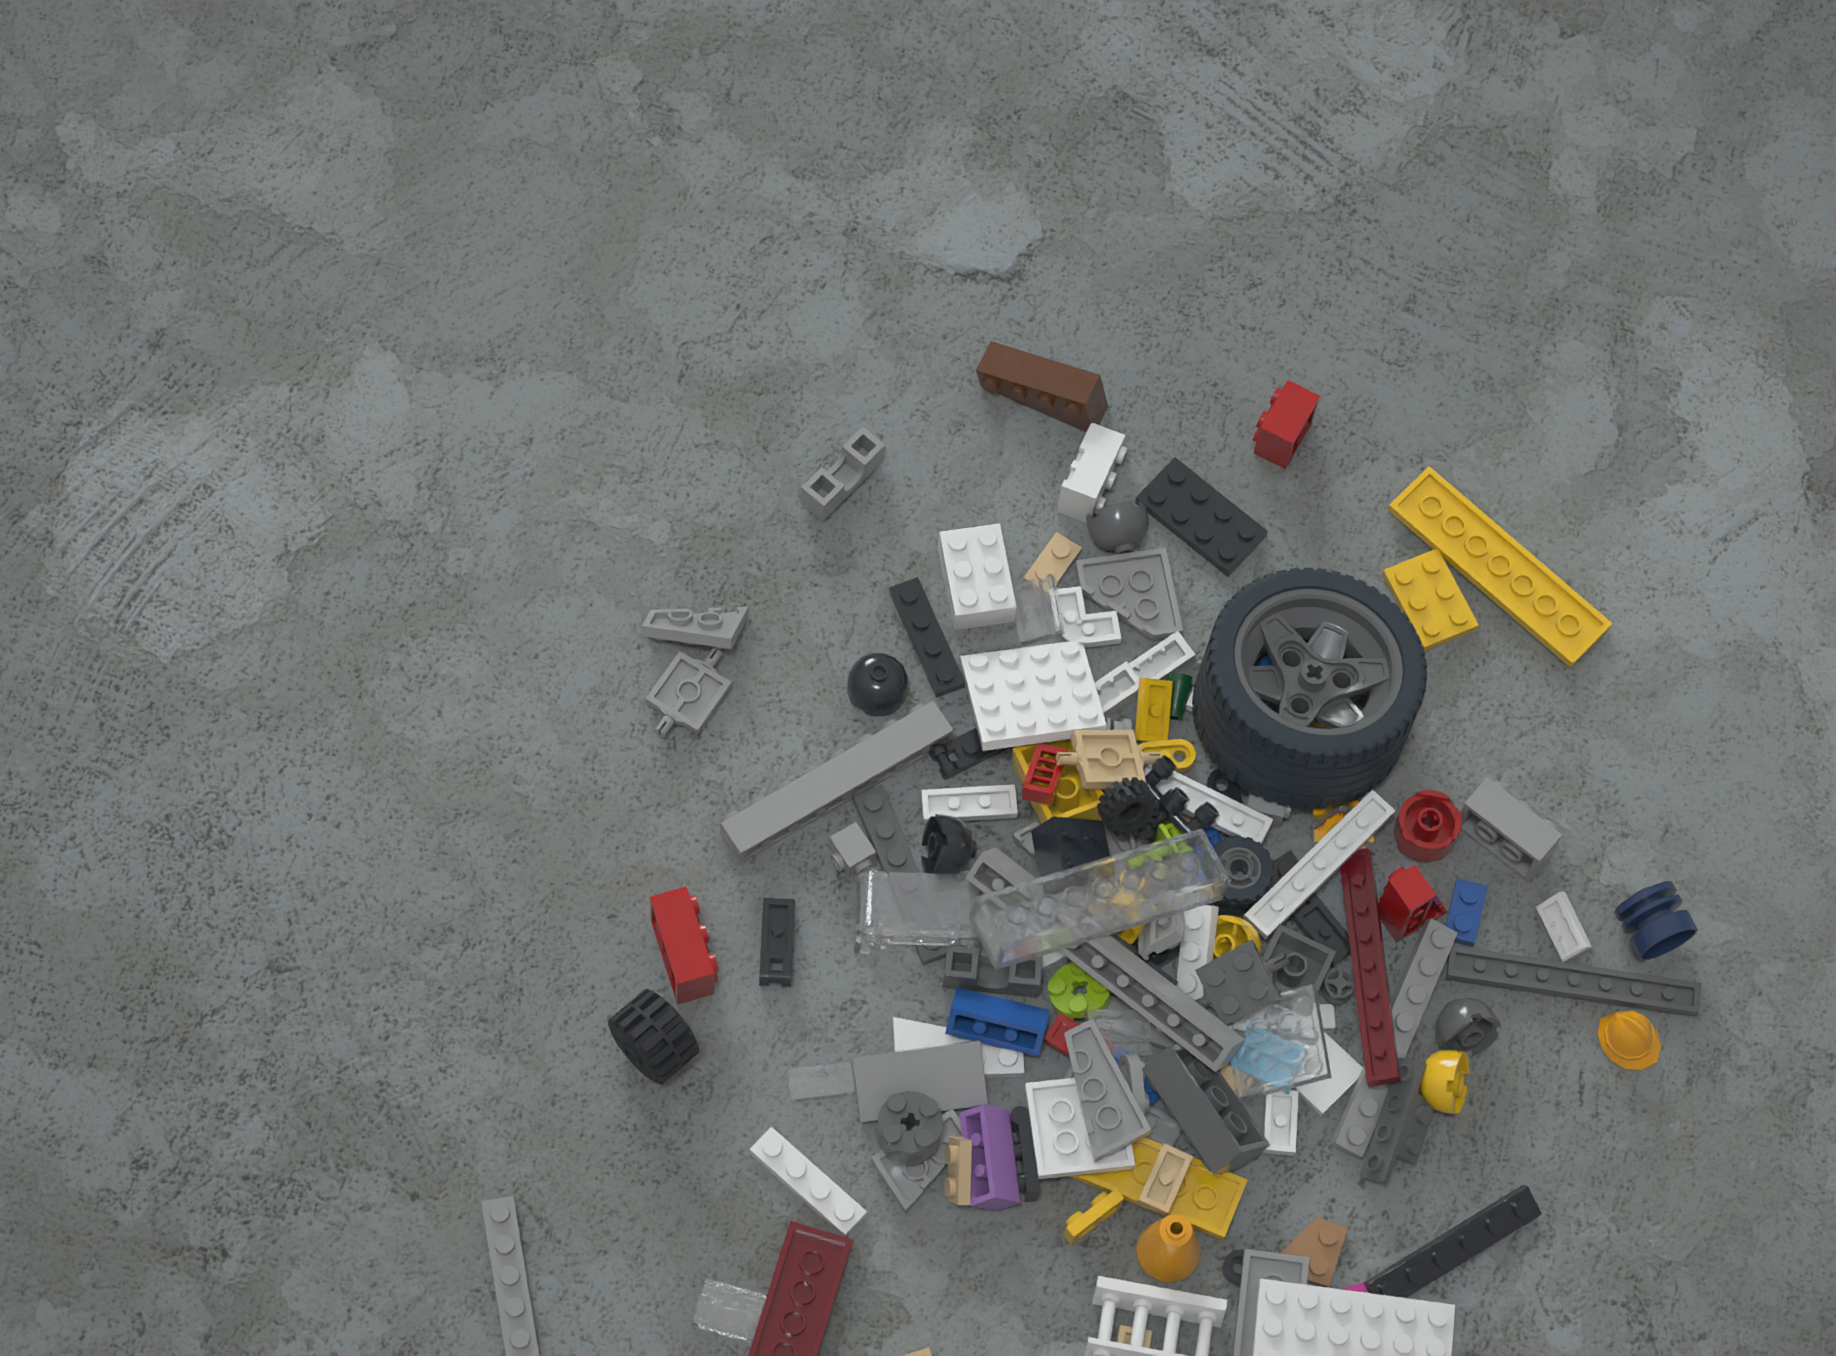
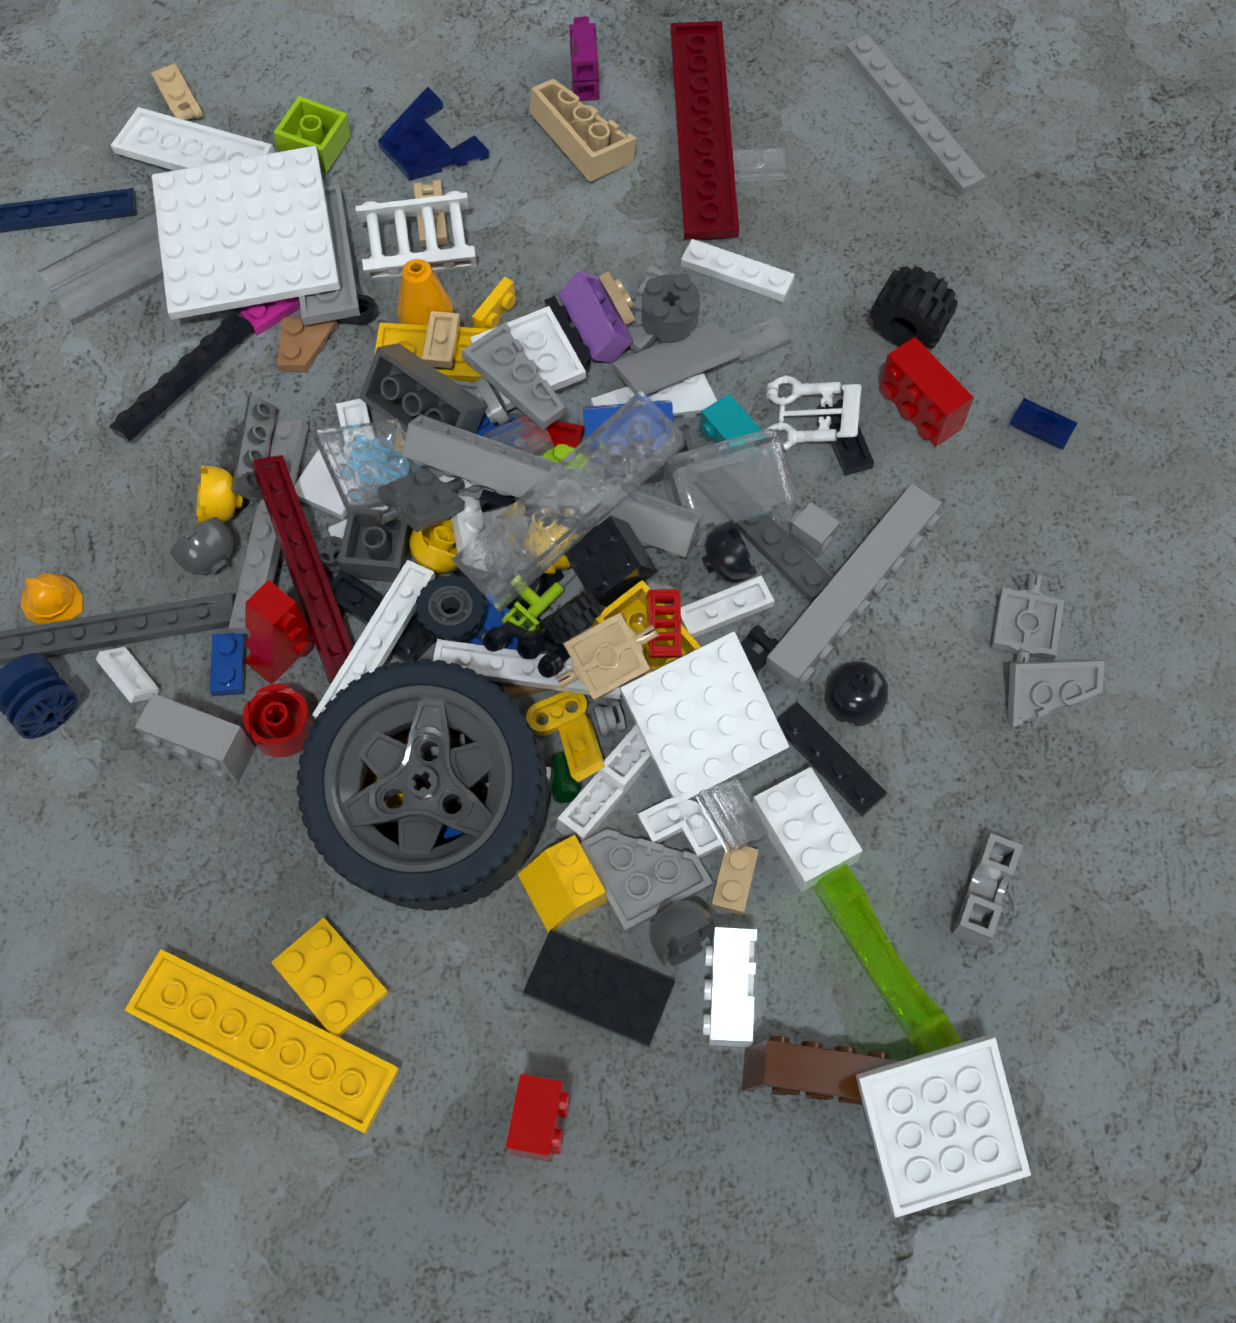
camera: 170 degrees right, 0 degrees up
(569, 886) = (1043, 423): none -> clear blue plate
(767, 952) = (849, 410): none -> white piece
(892, 983) = (726, 421): none -> teal brick
(952, 442) = (911, 1006): none -> clear neon green arch
(963, 315) = (943, 1125): none -> white plate
(1200, 599) = (562, 884): none -> yellow slope

